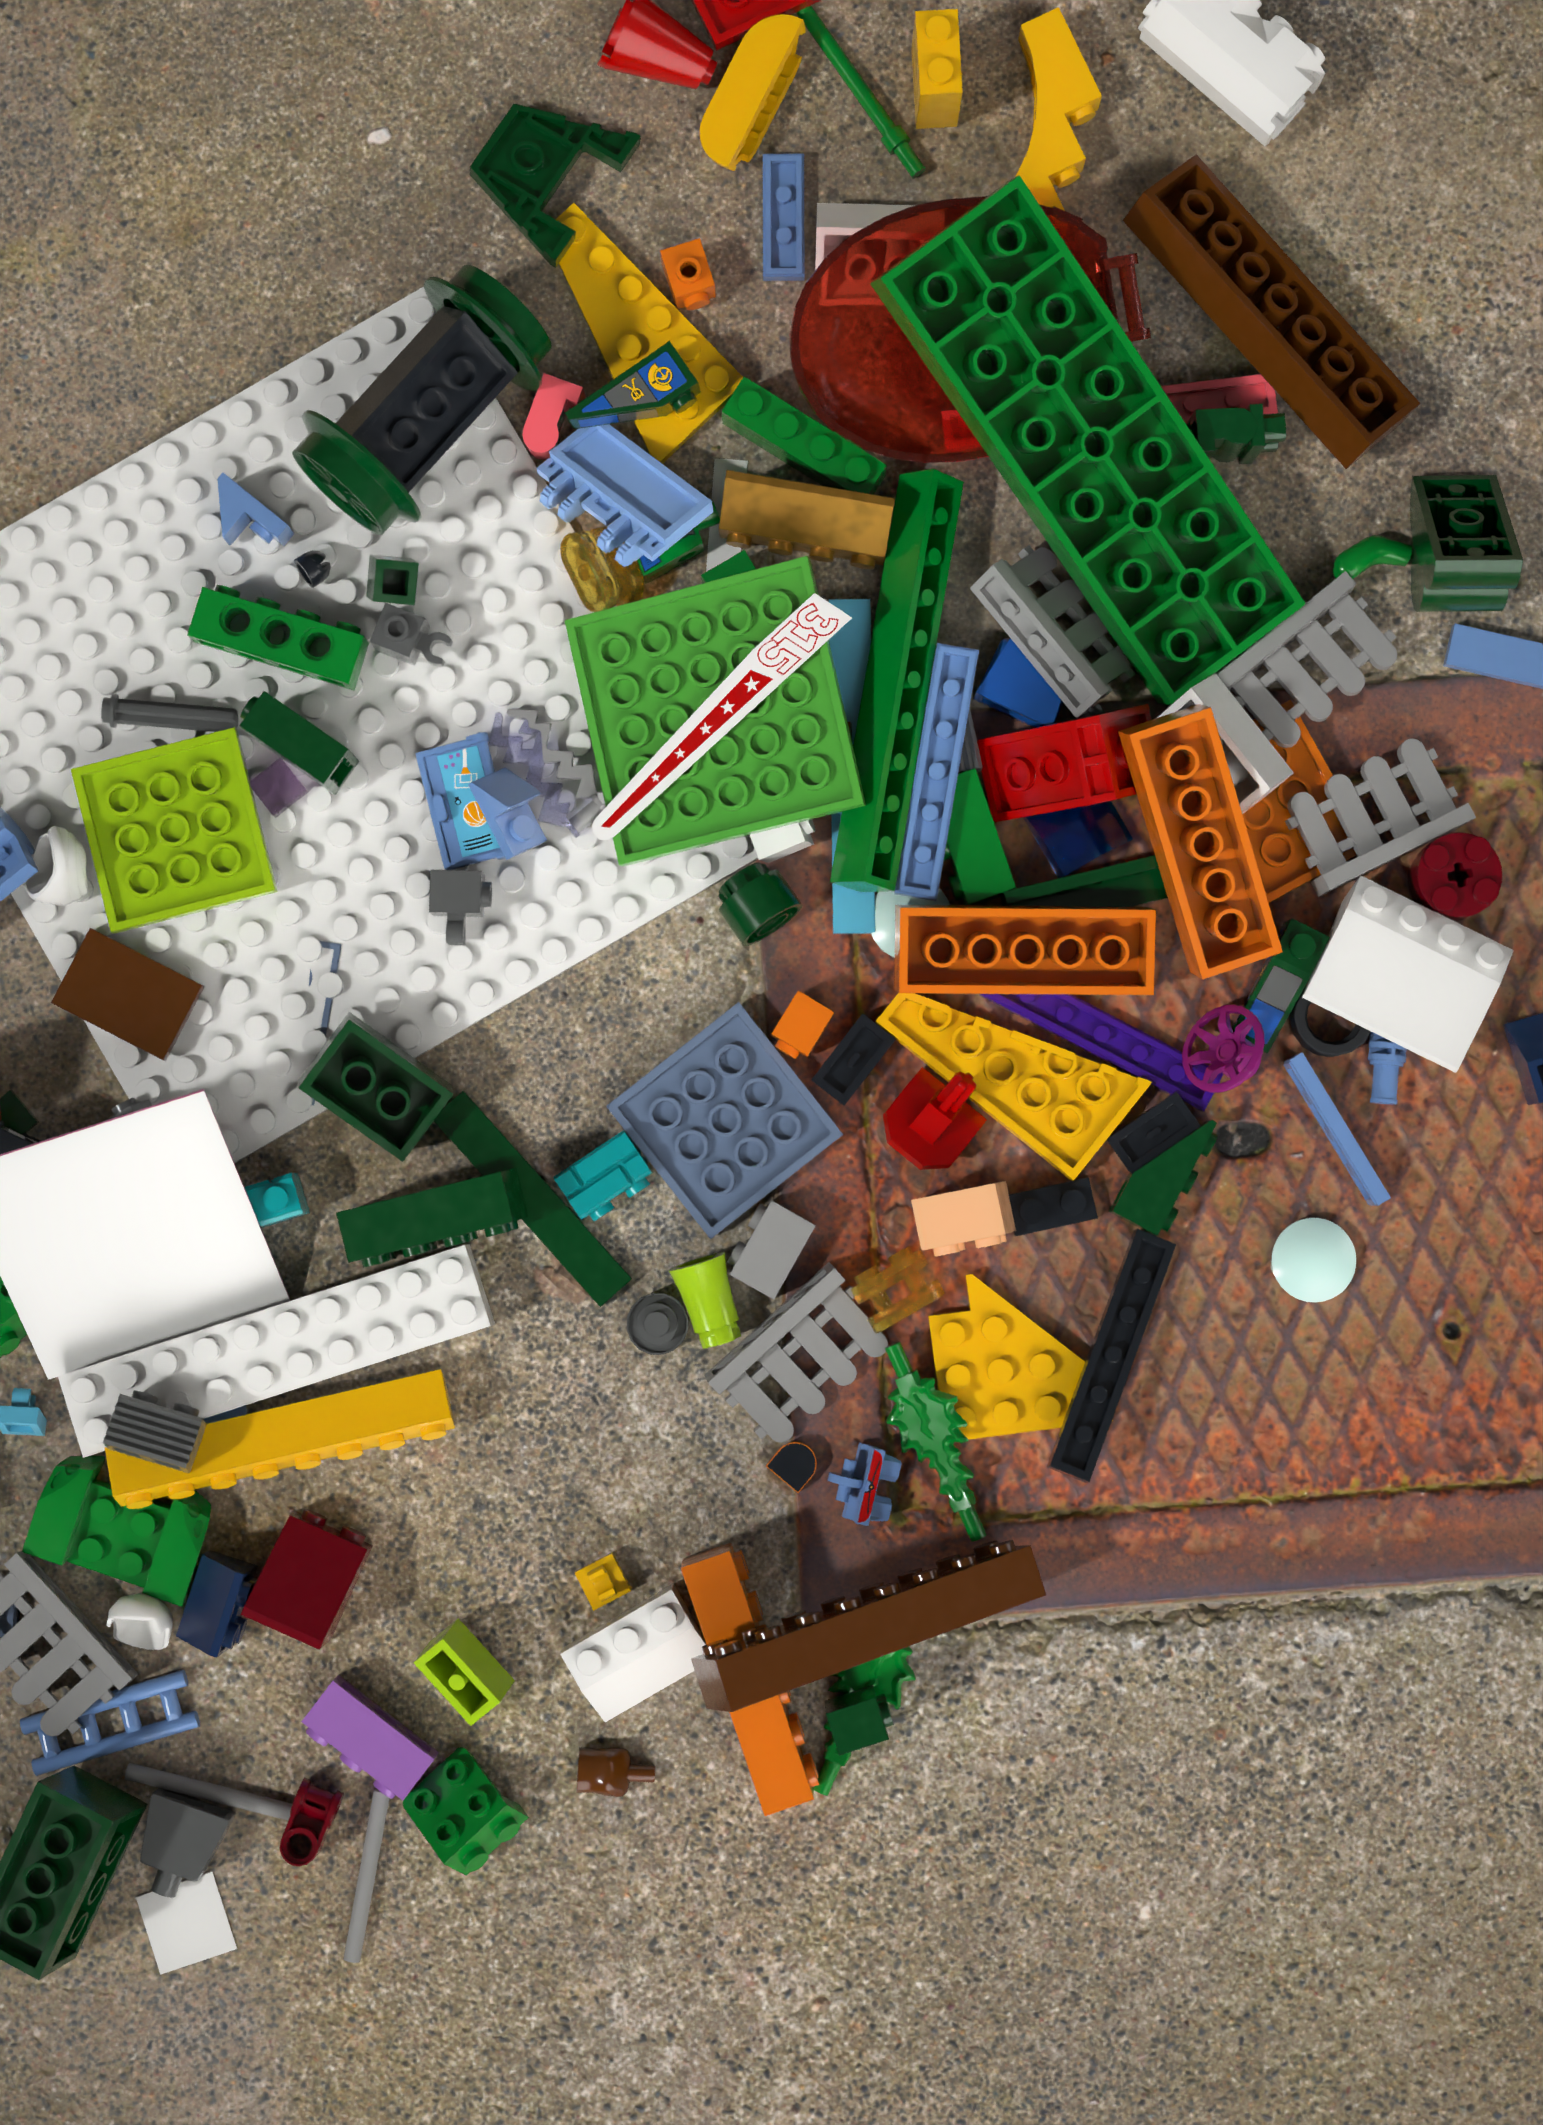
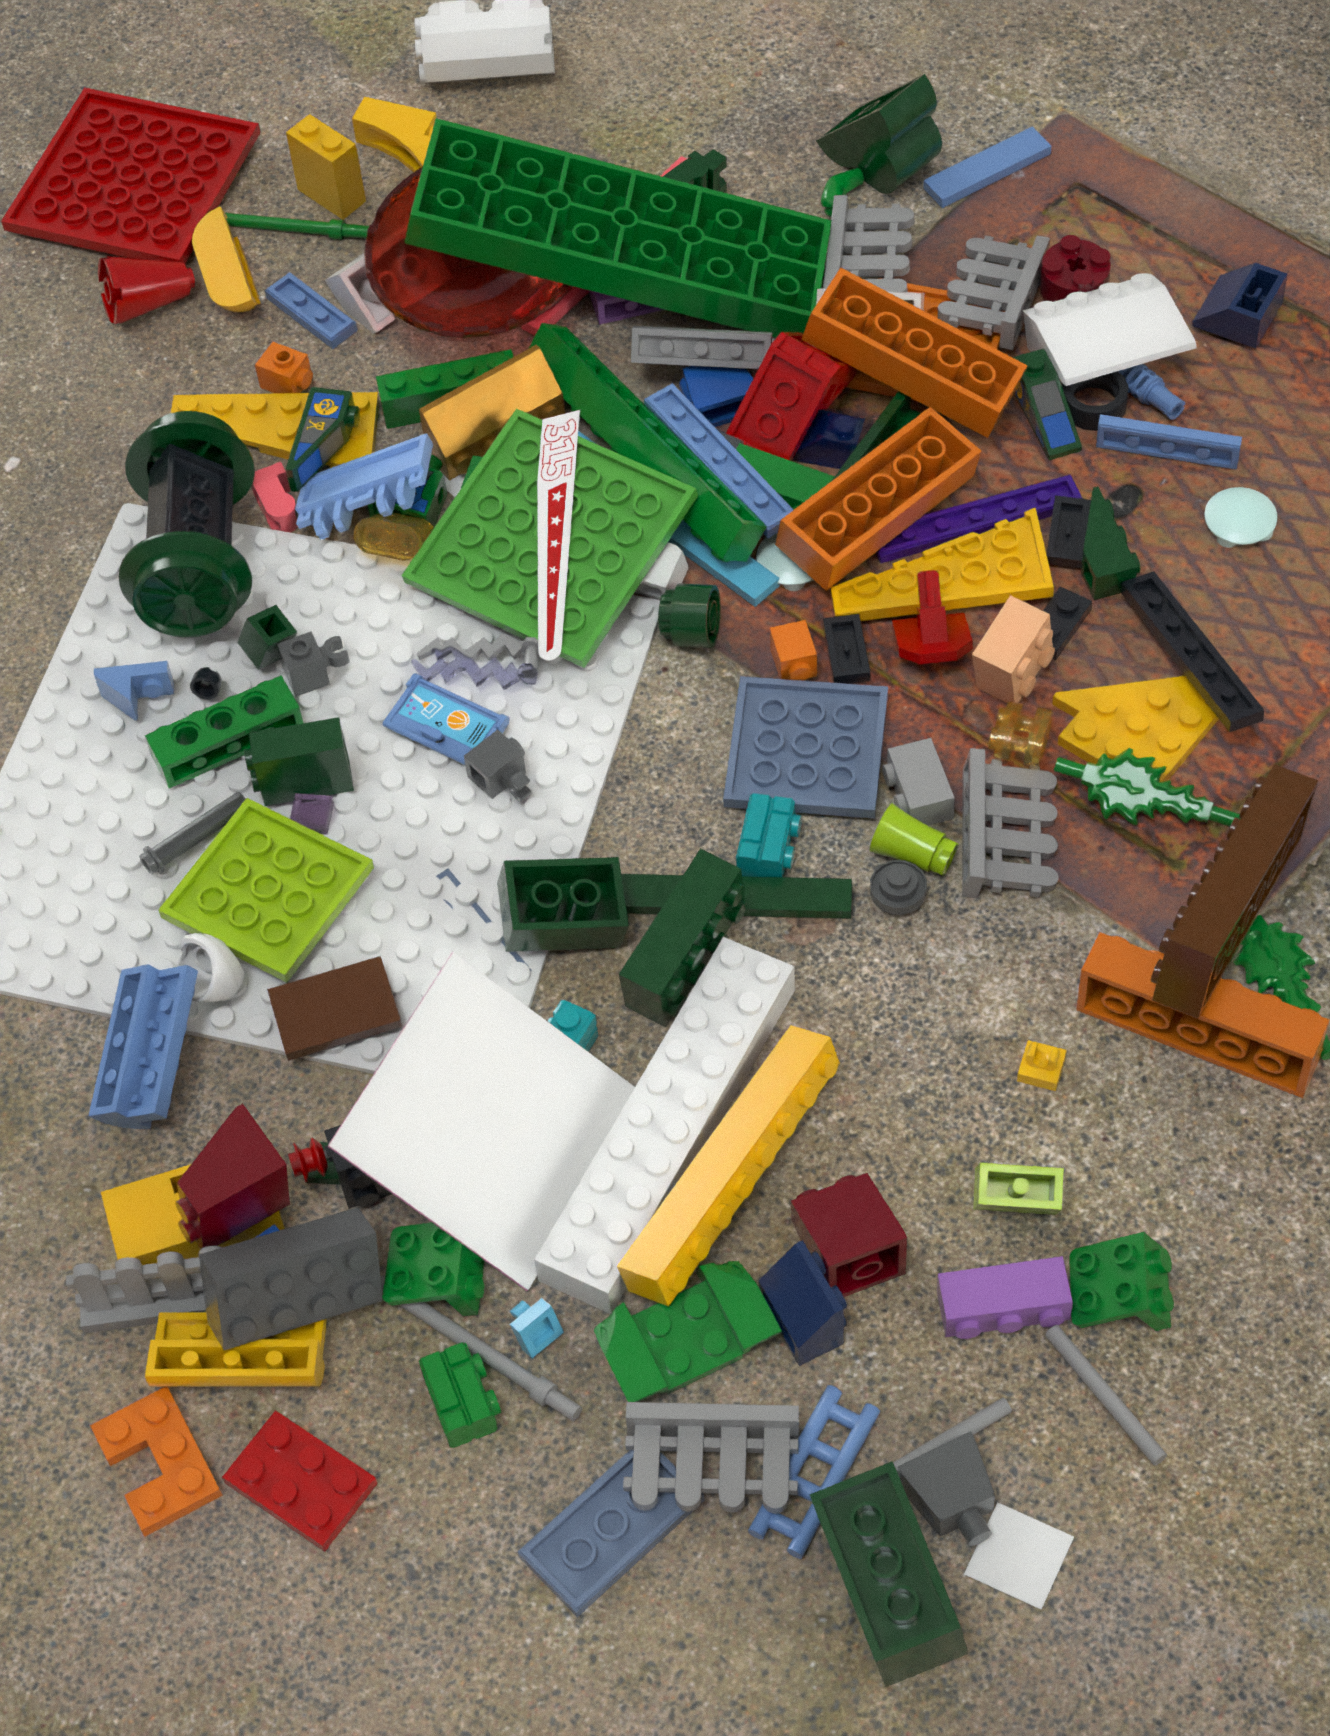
camera: 45 degrees left, 30 degrees down
(141, 1621) = (765, 1373): white hair -> none
(155, 1432) = (643, 1210): dark grey brick -> none
(310, 1815) = (1024, 1387): dark red piece -> none
(505, 806) = (472, 693): medium blue slope -> none
(531, 159) = (126, 393): dark green wing -> none
(609, 1771) = (1183, 1171): reddish brown piece -> none
(635, 1653) = (1115, 1079): white slope -> none
(794, 1464) = (1078, 889): black tile -> none
(858, 1719) = (1297, 963): dark green brick -> none
(860, 1482) = (1132, 854): medium blue hips -> none
(1228, 1052) = (1059, 452): magenta wheel -> none
(1270, 311) = (650, 124): reddish brown brick -> none

